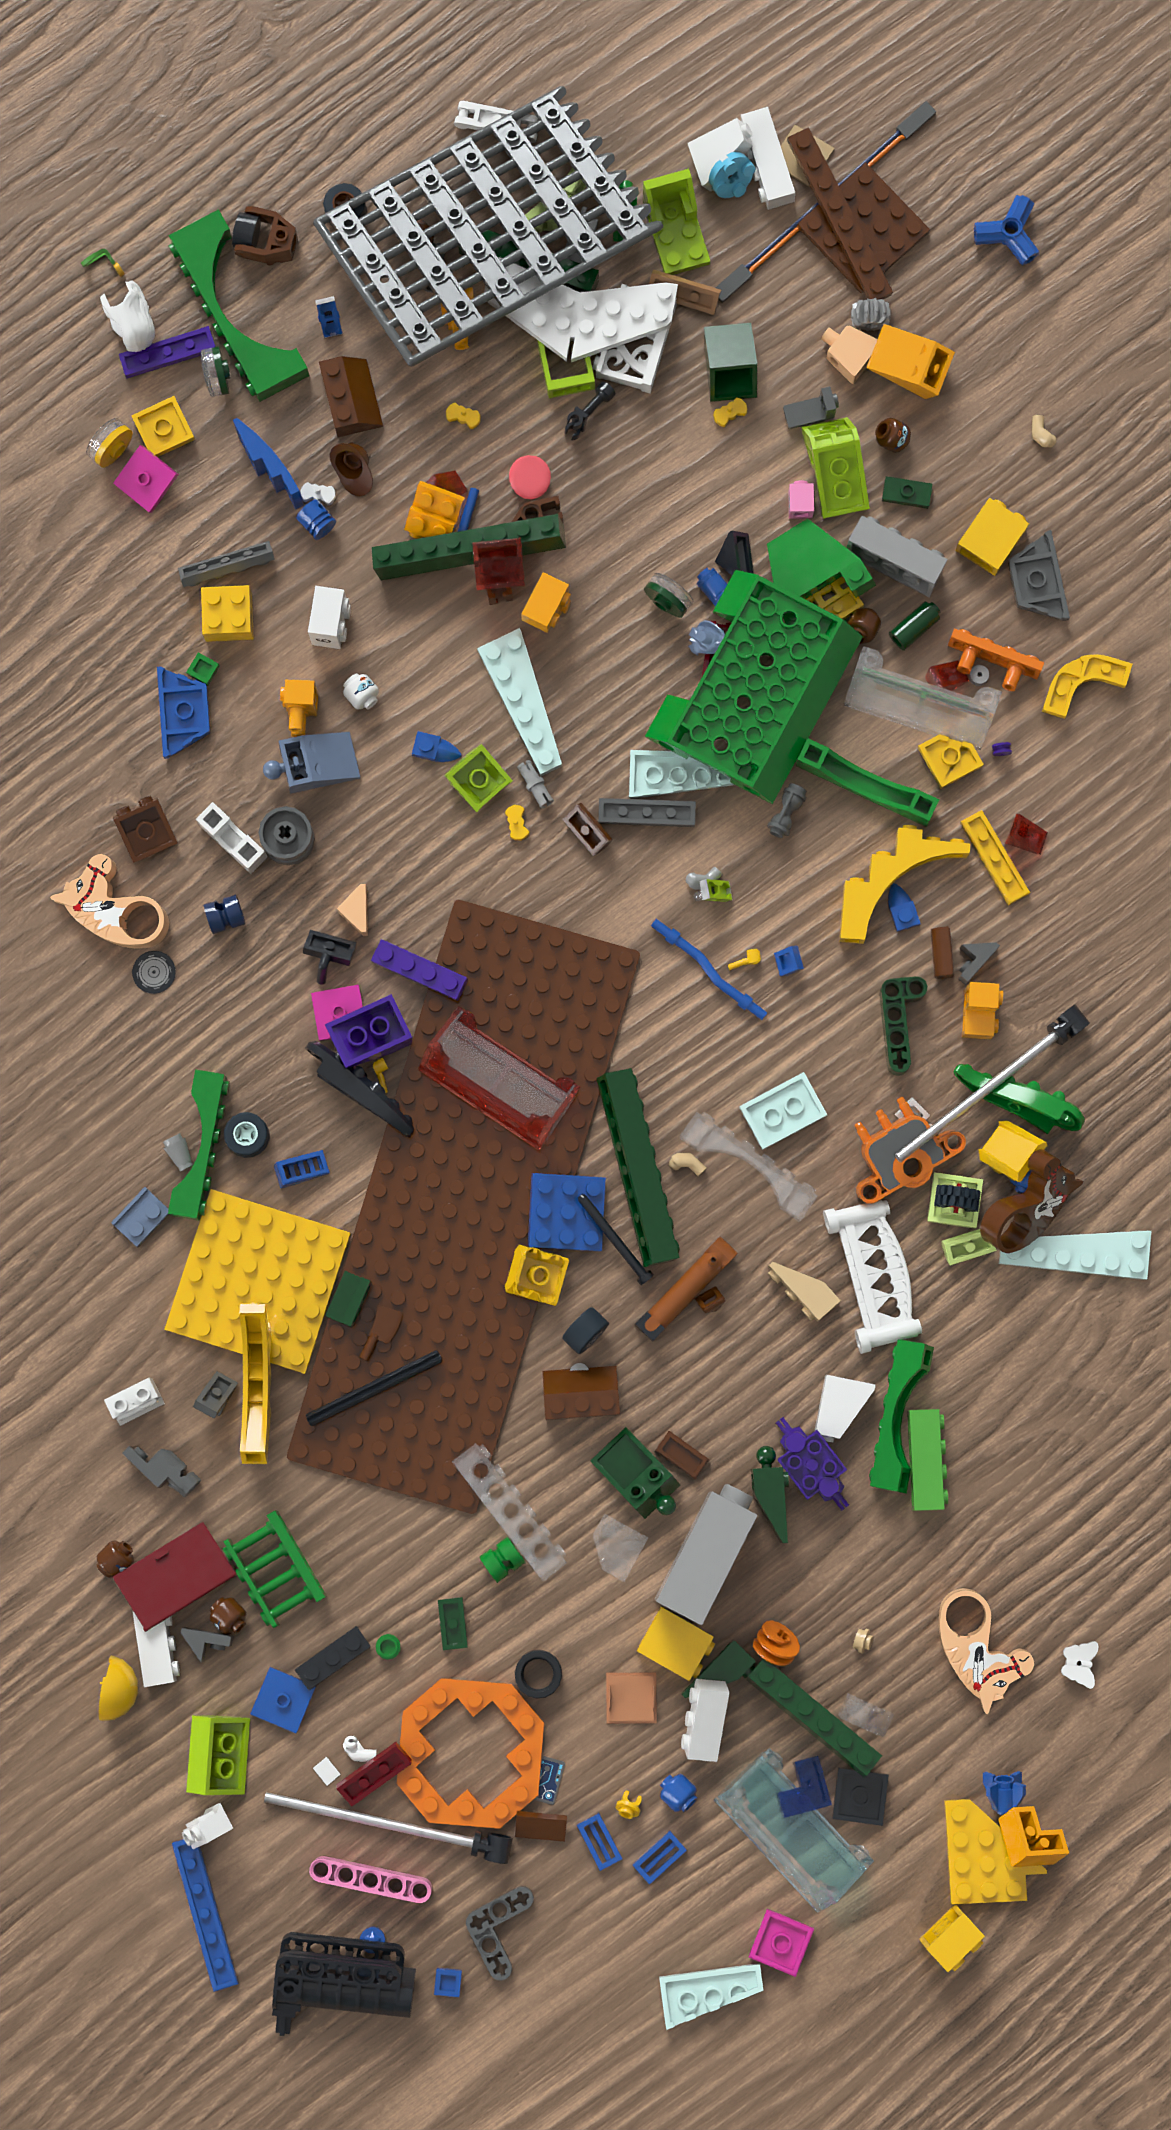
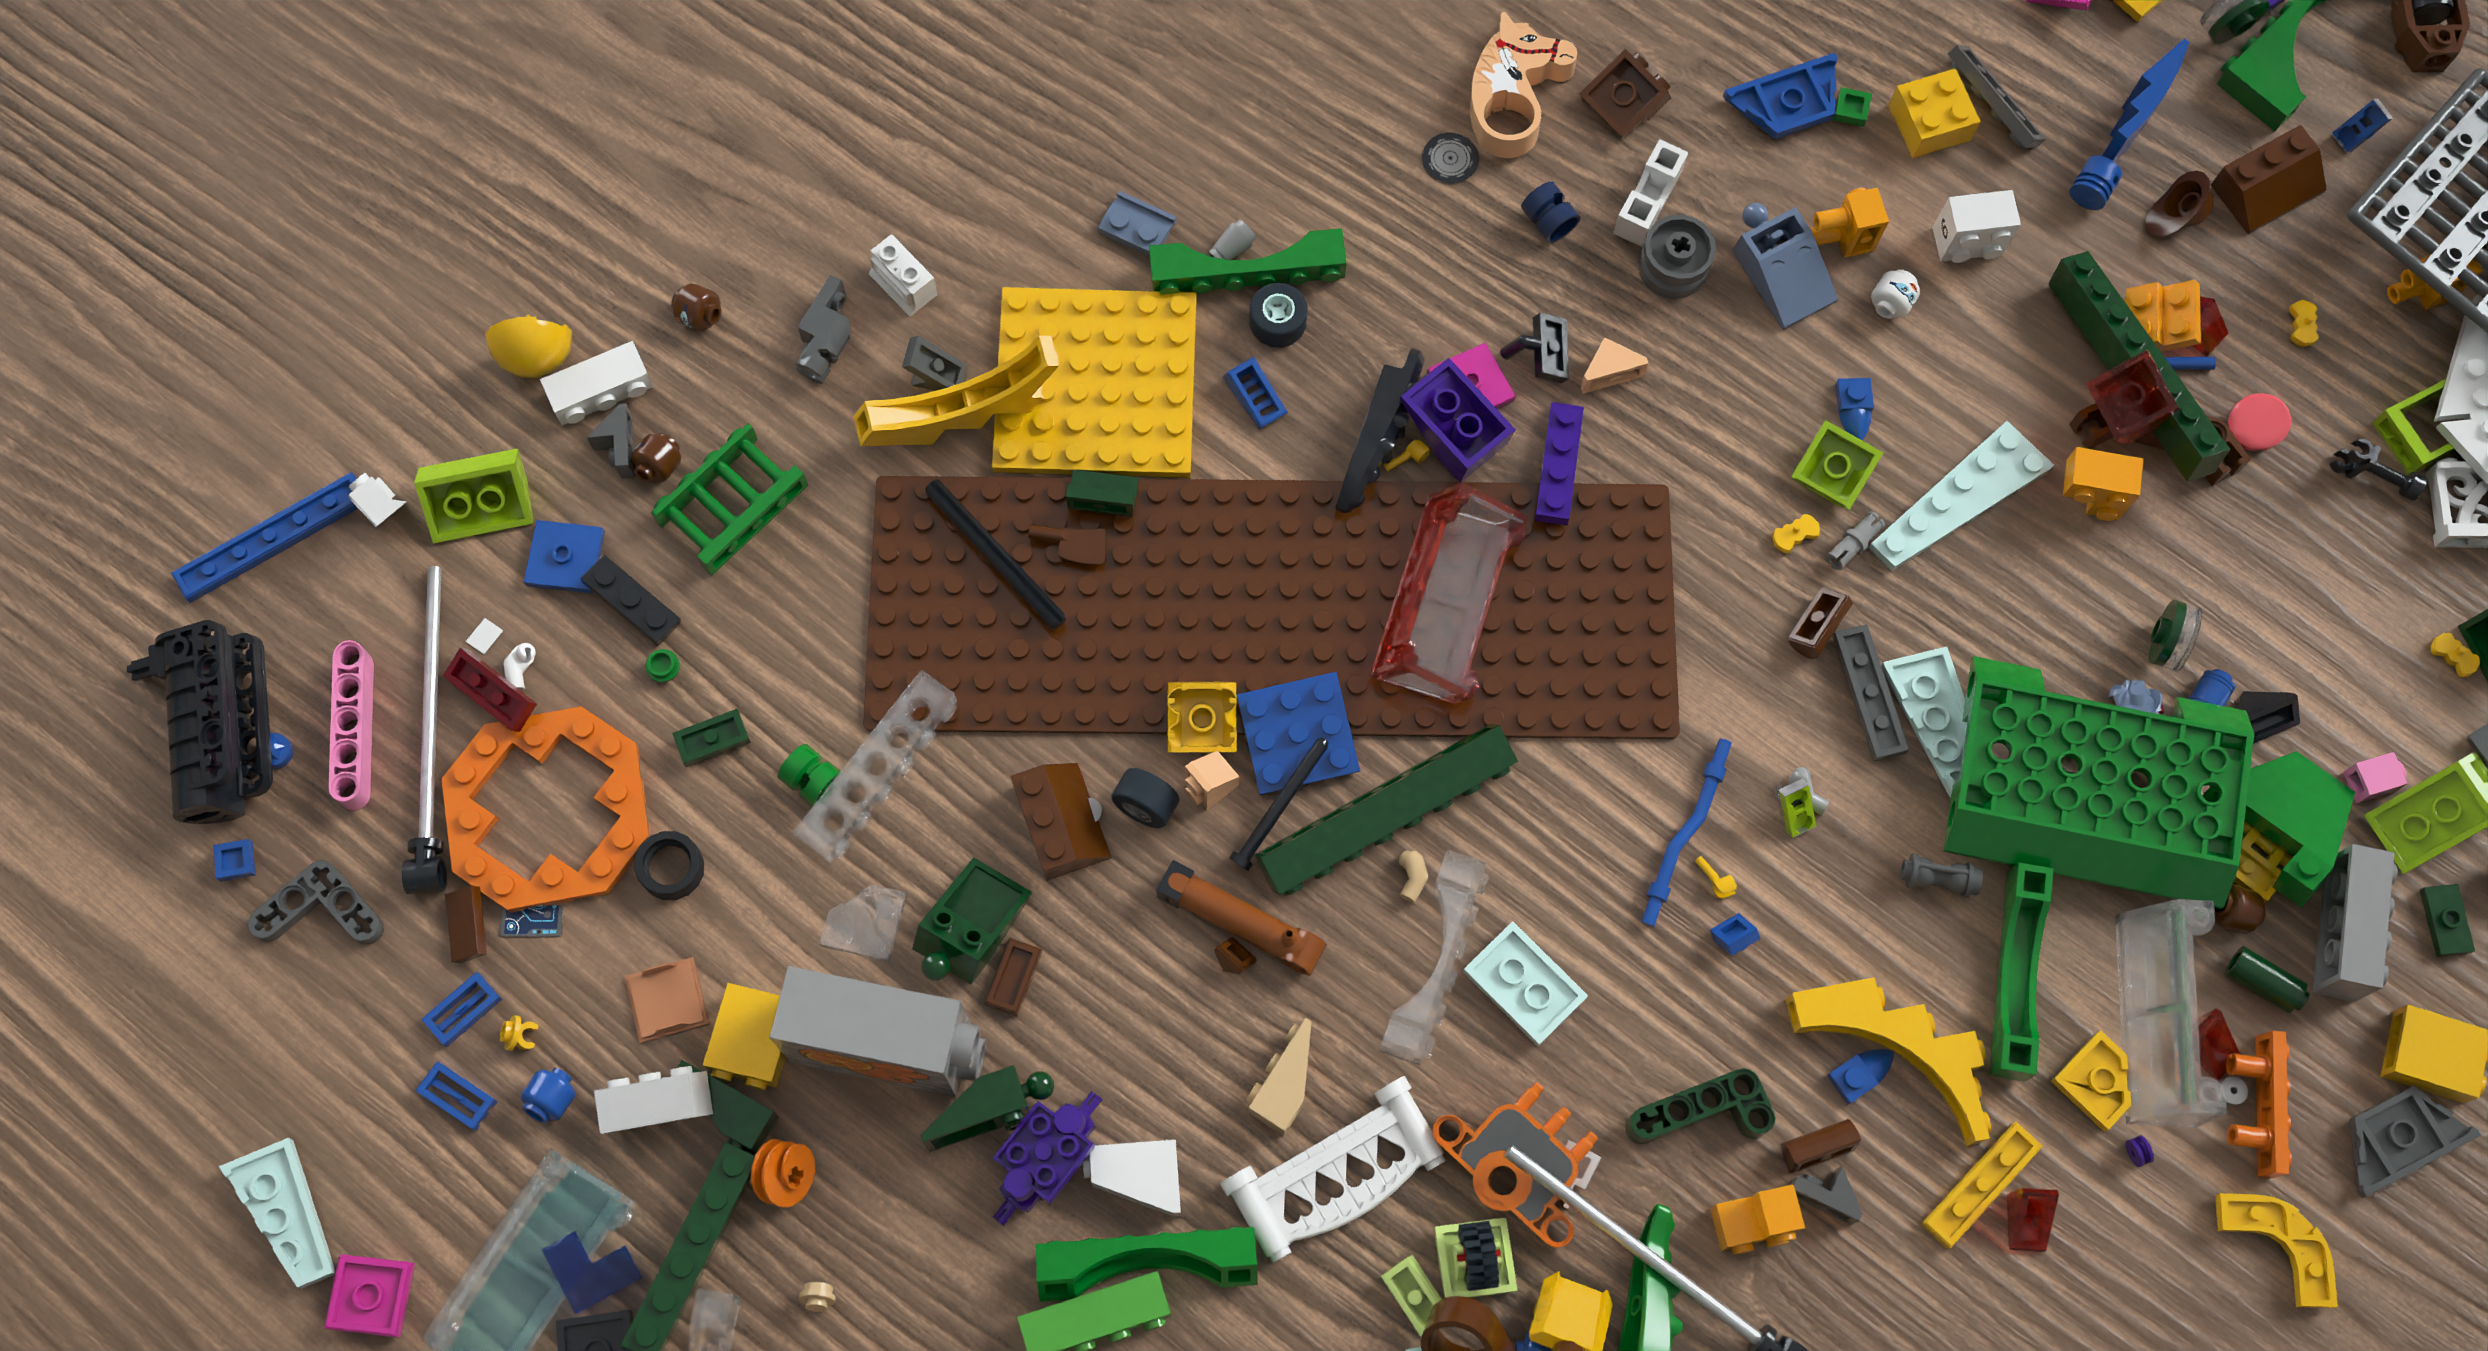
camera: 70 degrees right, 10 degrees down
(176, 1580) = (676, 373): dark red container -> none
(321, 493) = (2130, 183): white piece -> none
(584, 1282) = (1209, 779): none -> light nougat slope

